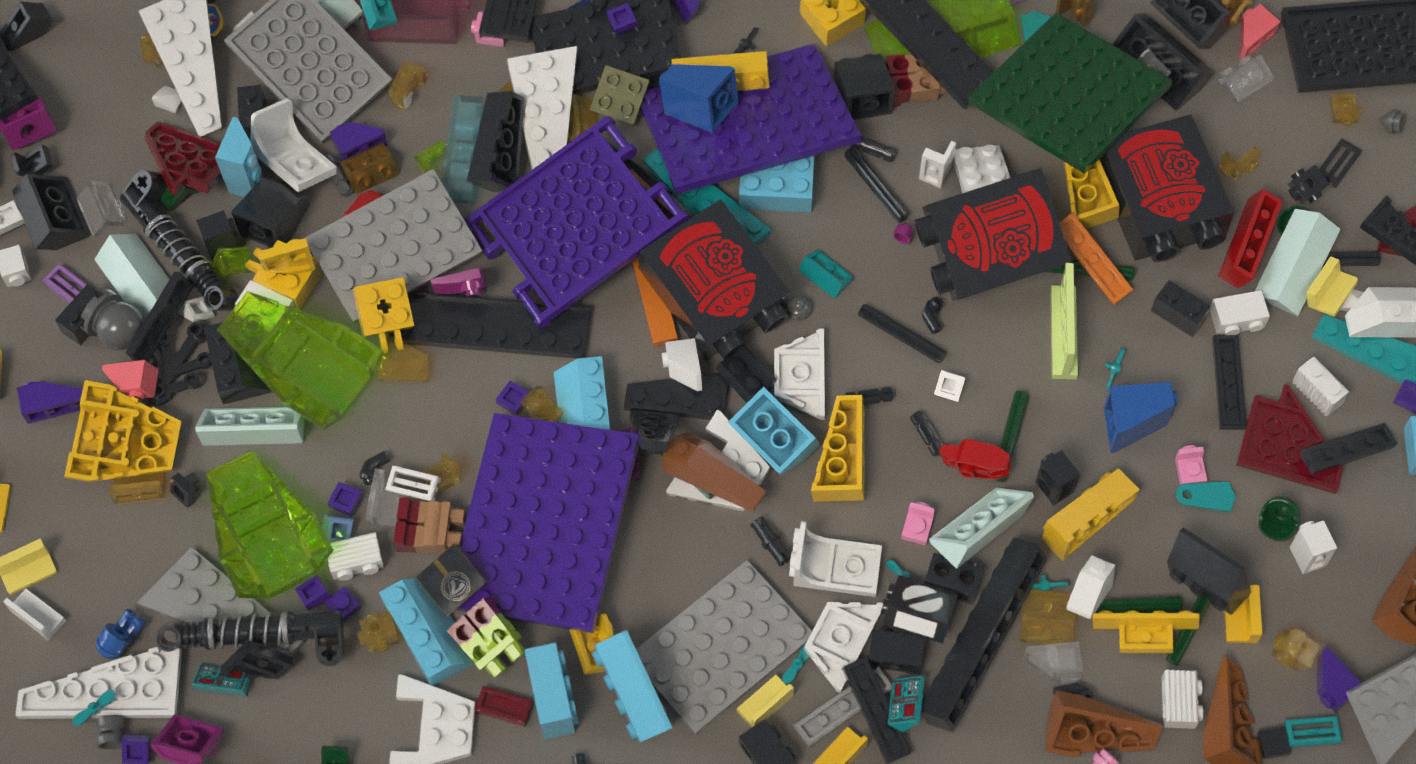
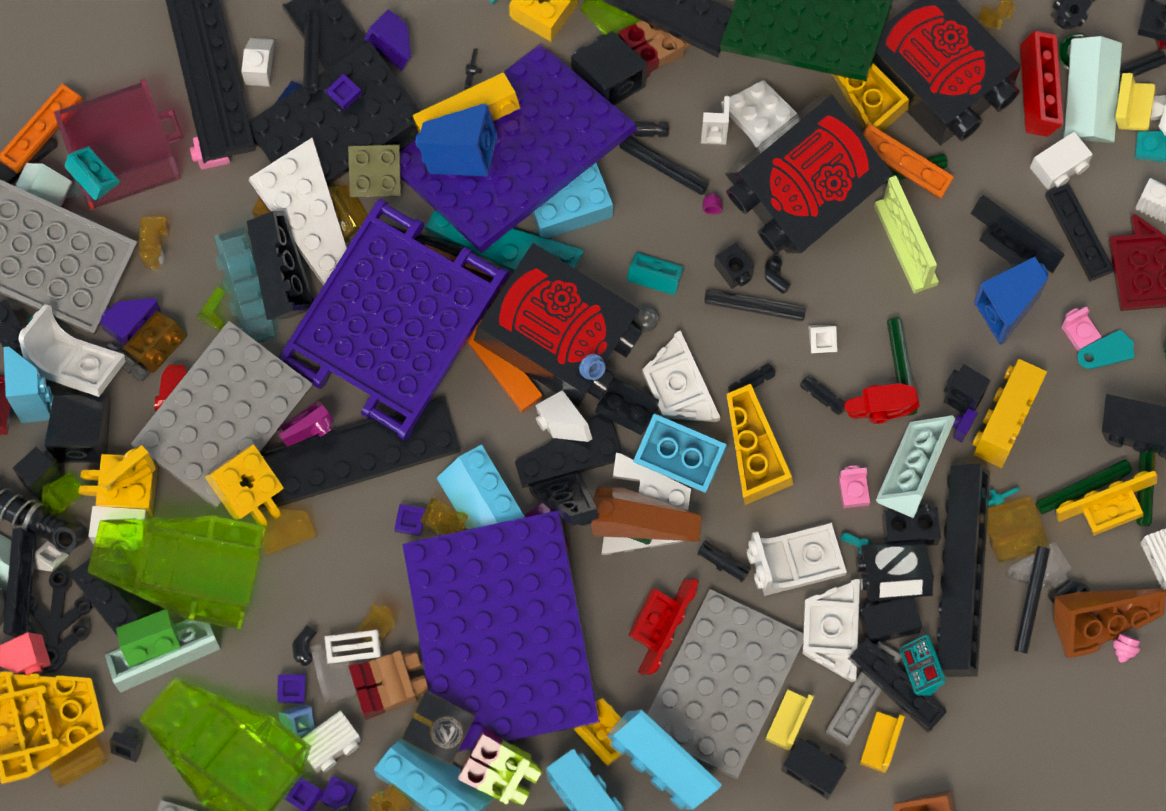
camera: 25 degrees left, 5 degrees up
(242, 405) = (148, 637): none -> bright green brick
(687, 568) = (658, 622): none -> red bracket
(726, 329) = (592, 367): none -> medium blue plate
(797, 665) = (802, 671): teal piece -> none
(898, 283) = (734, 256): none -> black brick
(1033, 684) = (1032, 599): none -> black piece
(1043, 507) = (963, 424): none -> dark purple plate
(1091, 587) = (1043, 484): white slope -> none
(1114, 367) = (969, 259): teal piece -> none
(1162, 362) = (1013, 238): none -> black bracket
(1180, 308) = (1006, 178): black brick -> none

